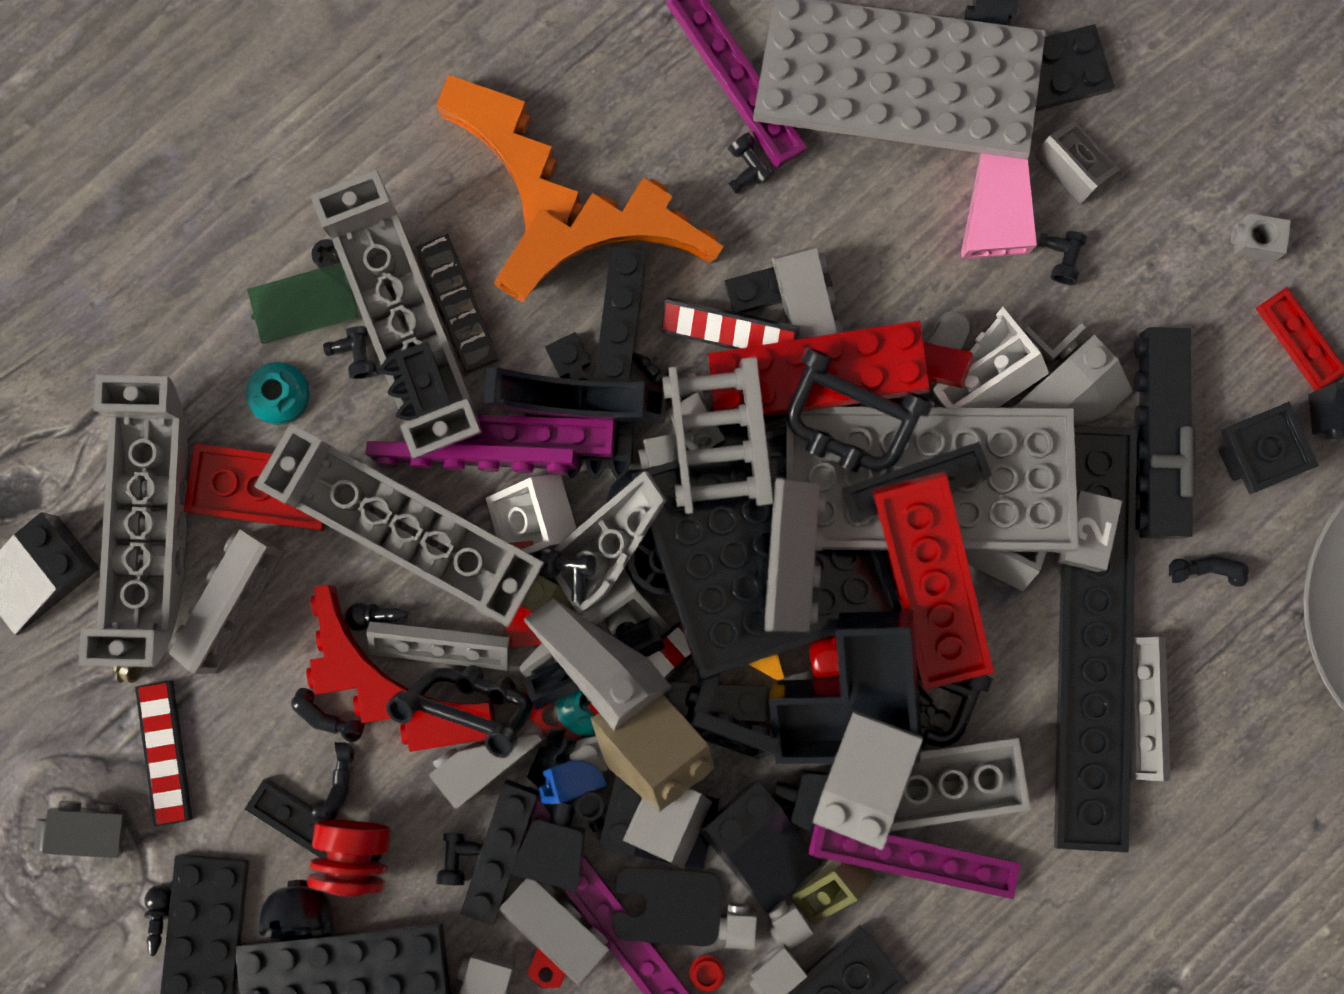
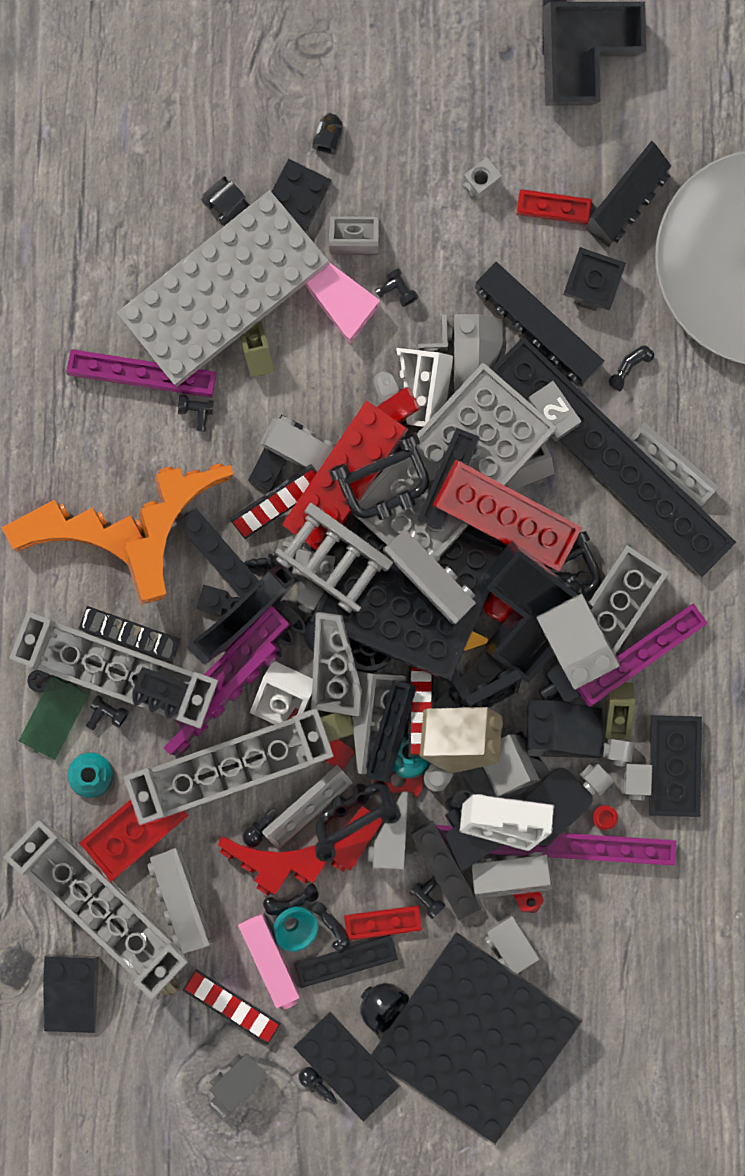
camera: 50 degrees left, 0 degrees up
(242, 749) = (270, 961): none -> bright pink slope
(296, 757) = (298, 936): none -> teal piece
(348, 862) = (378, 949): red wheel -> none
(406, 847) = (383, 922): none -> red tile
(550, 756) = (423, 803): black plate -> none
(570, 781) = (441, 798): blue brick -> none
(579, 569) = (336, 693): black piece -> none
(603, 667) = (399, 726): light grey wedge -> none
(605, 875) = (507, 821): none -> white wedge
(866, 169) = (257, 351): none -> olive slope
(1157, 42) = (328, 134): none -> black rock
(1184, 461) = (561, 329): dark grey piece -> none

